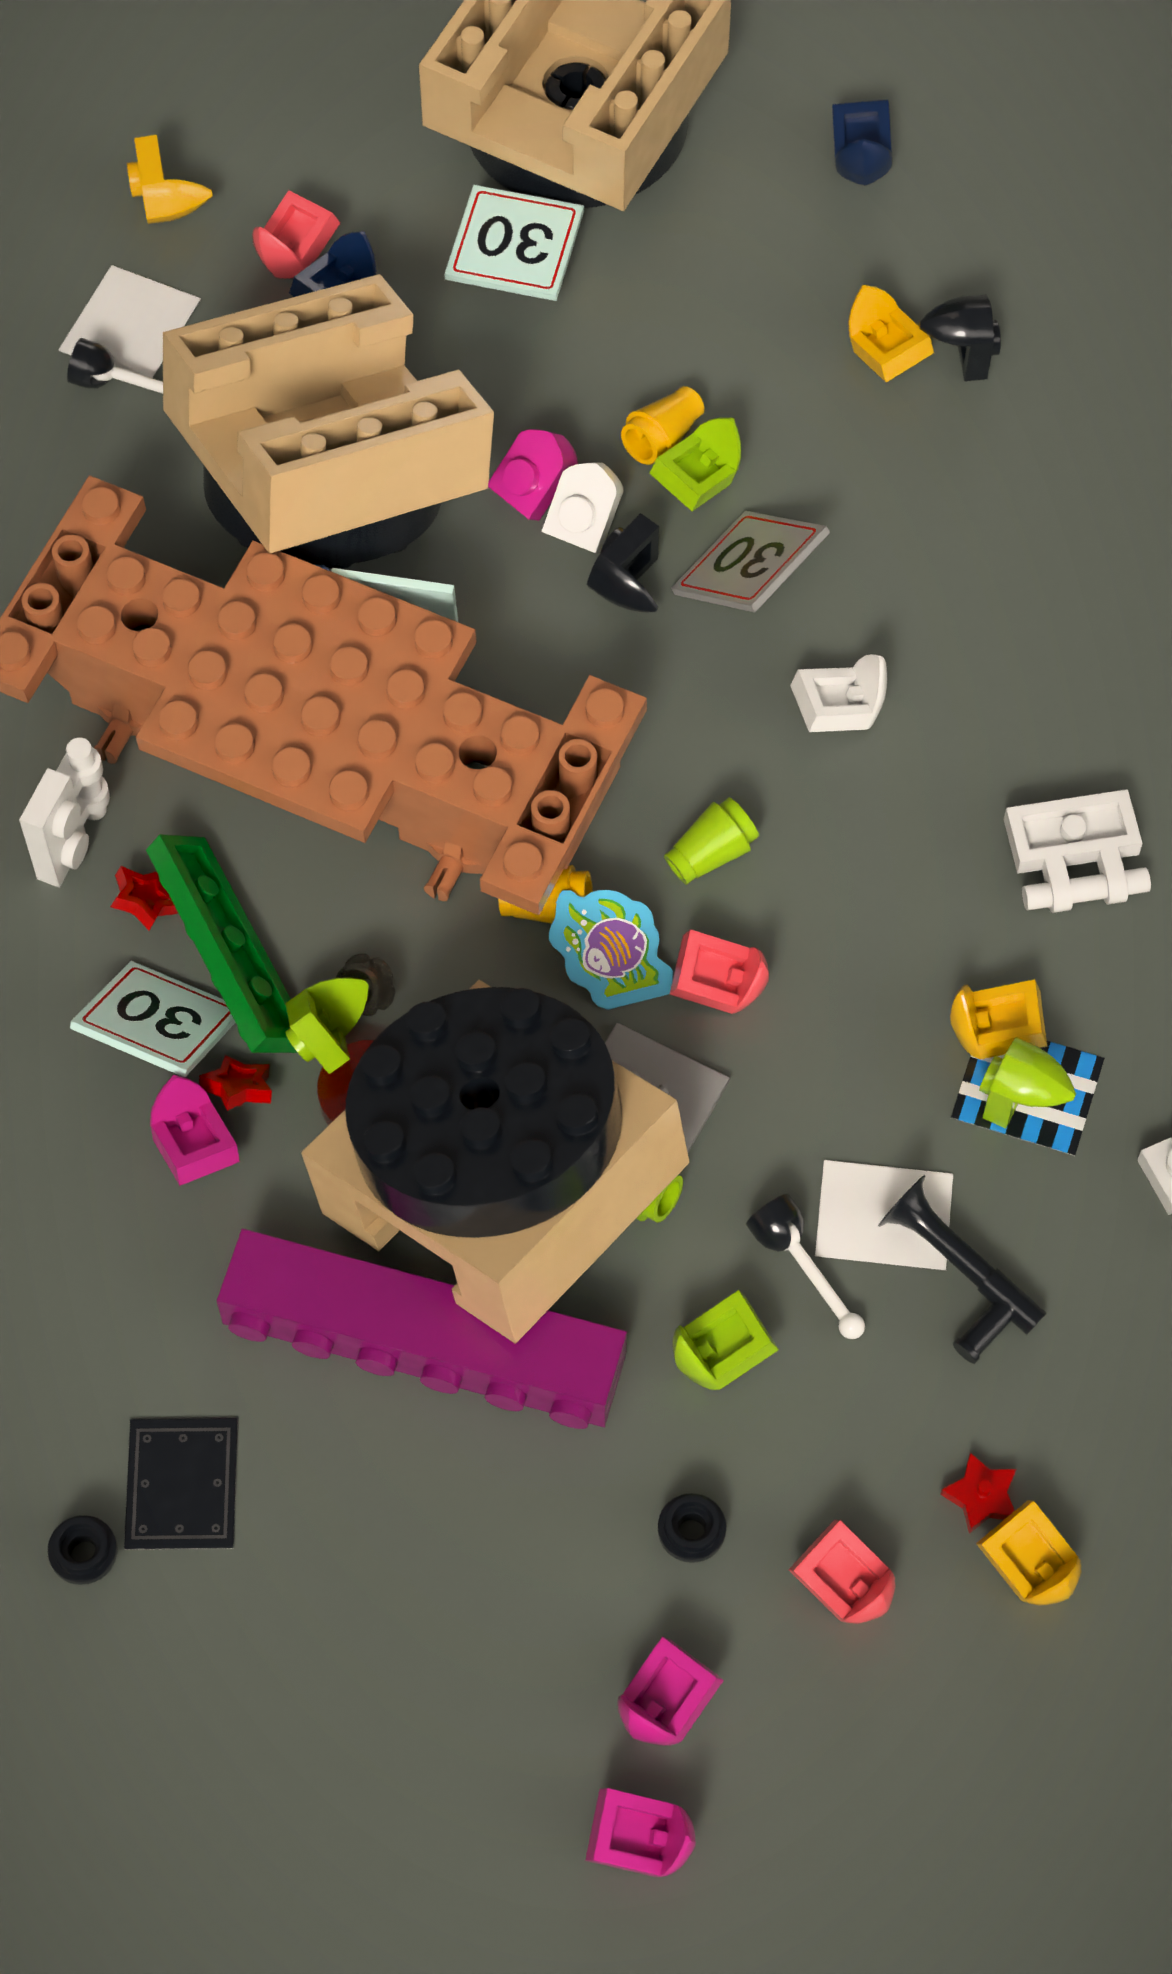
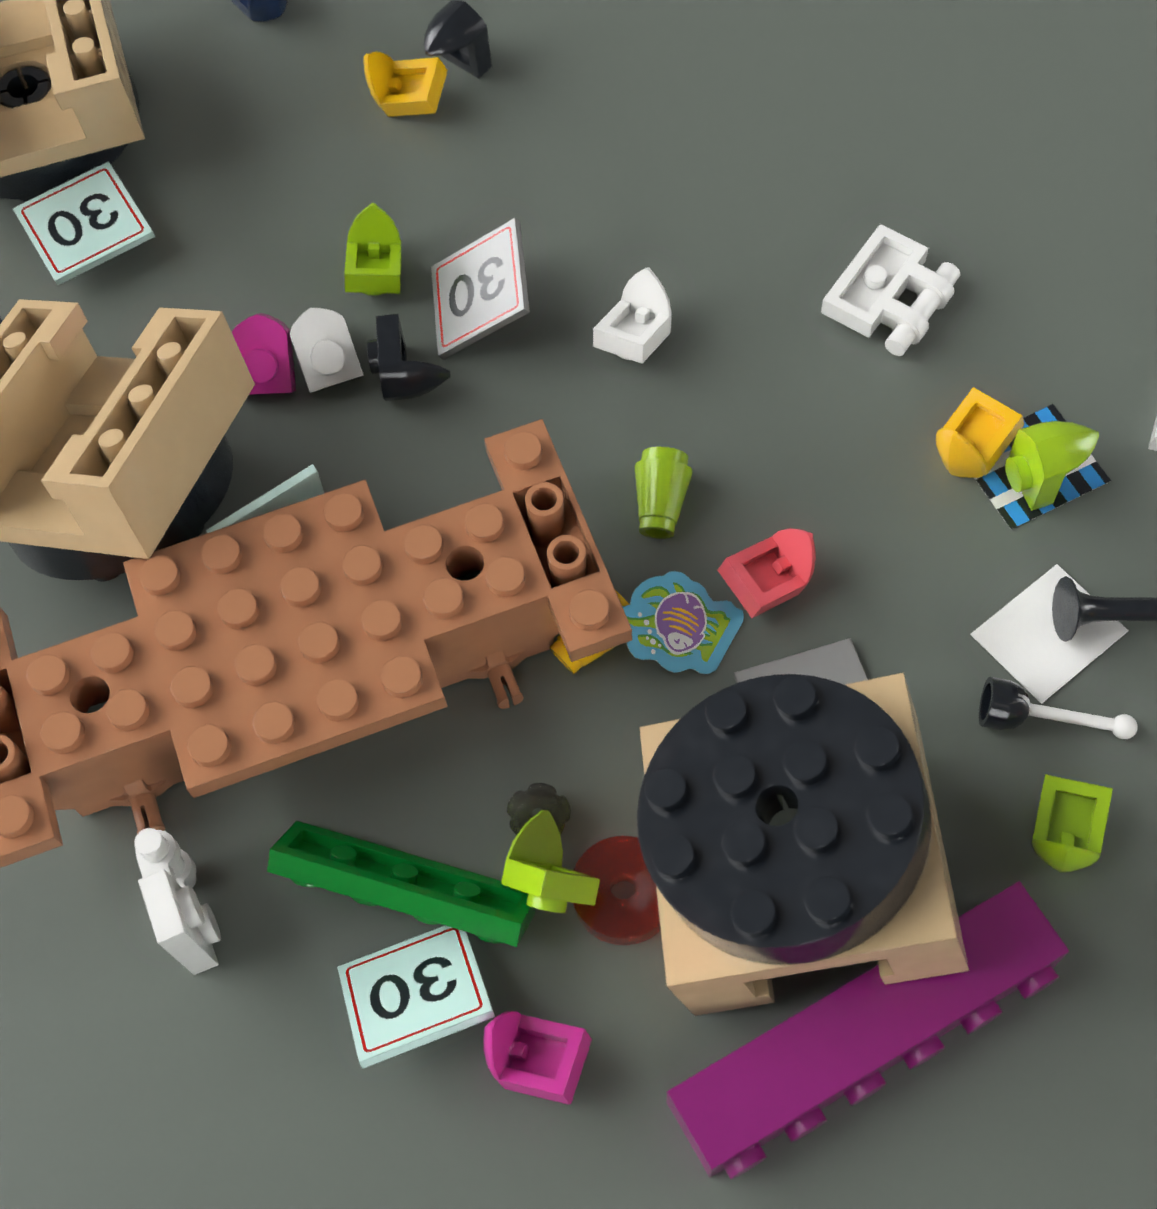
camera: 40 degrees left, 0 degrees up
(142, 896) = (298, 909): red piece -> none
(238, 1083) = (525, 980): red piece -> none
(661, 424) = (317, 259): yellow cone -> none

